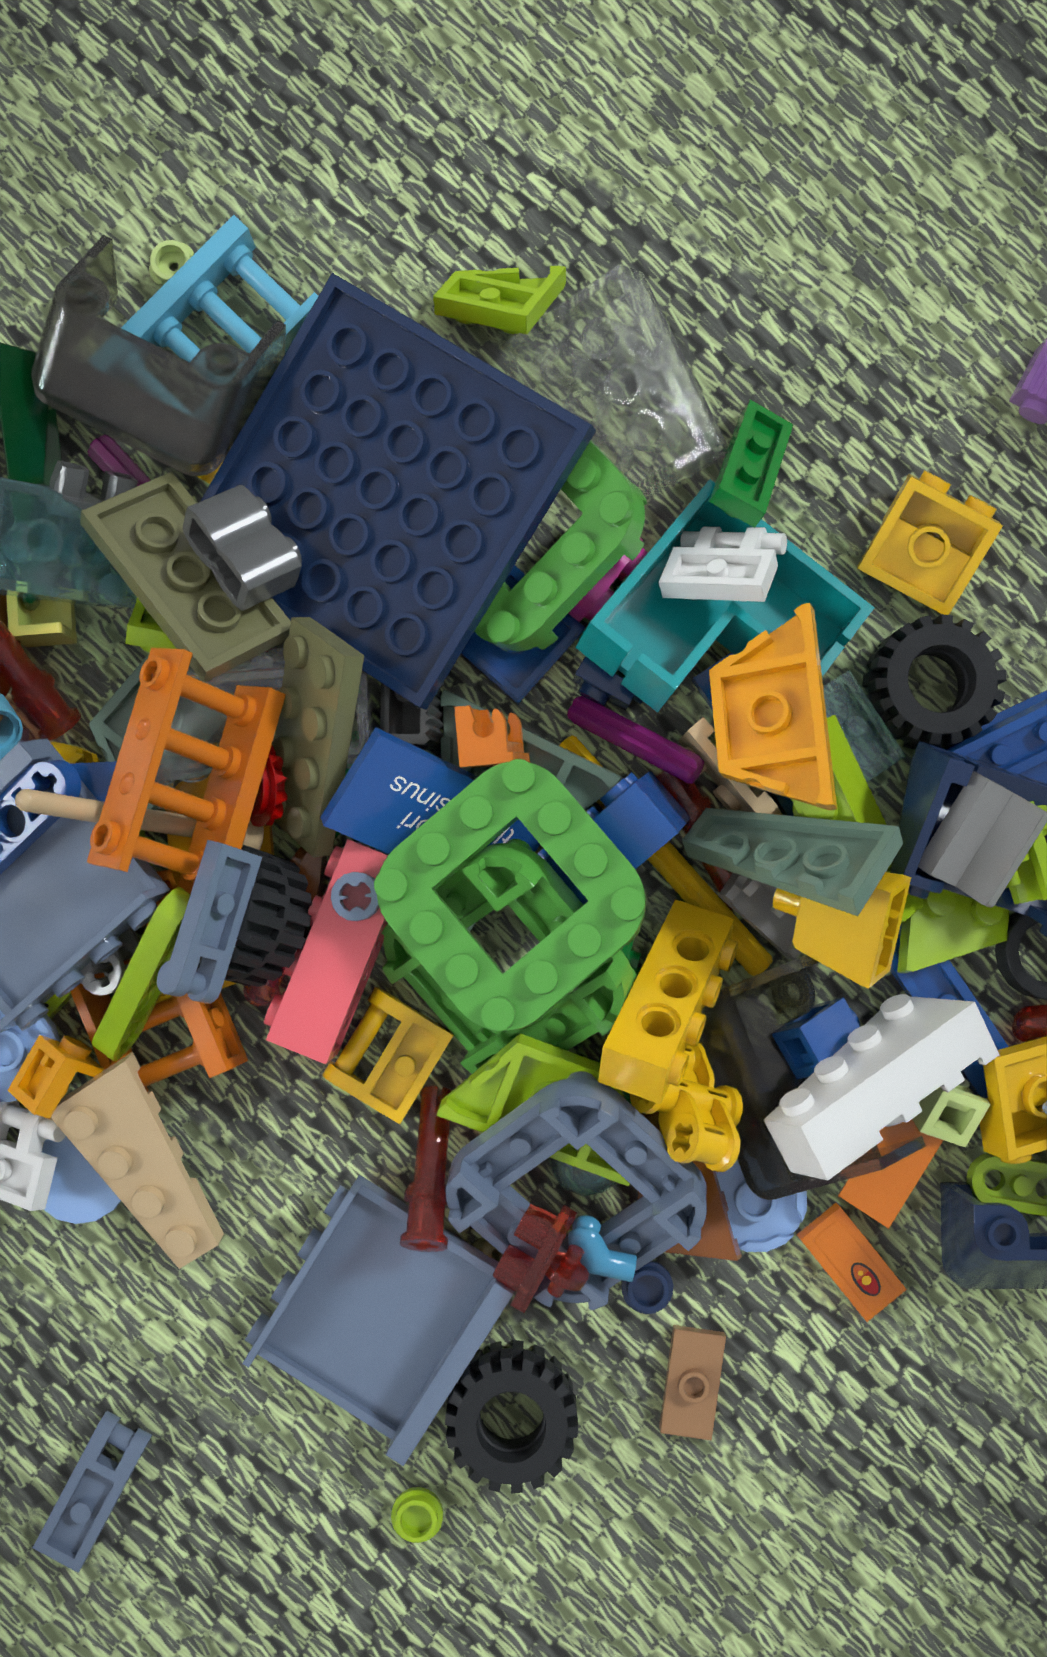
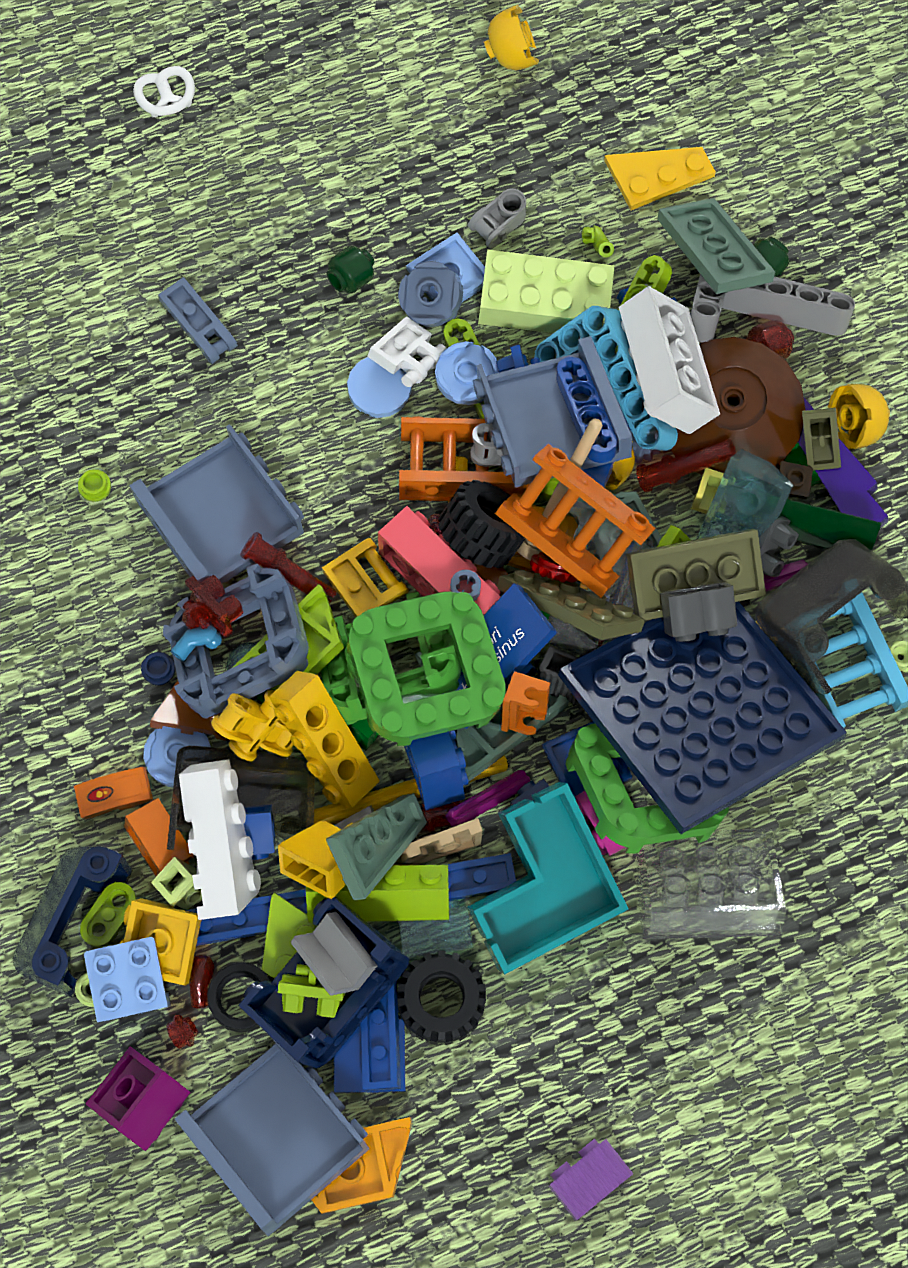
camera: 110 degrees right, 15 degrees down
(49, 1071) = (444, 388): light orange bracket -> none
(126, 1143) = (386, 412): tan wing -> none
(138, 987) = (474, 458): lime beam -> none
(210, 924) = (486, 497): sand blue plate -> none
(498, 298) = (800, 839): lime wing -> none
(512, 1459) = (131, 582): black tyre -> none
(692, 1382) = (89, 670): medium nougat plate -> none
(723, 565) = (567, 882): white plate -> none
(751, 464) = (628, 941): green plate -> none
(774, 714) = (465, 869): light orange wing -> none
(930, 542) = (532, 1040): yellow plate -> none

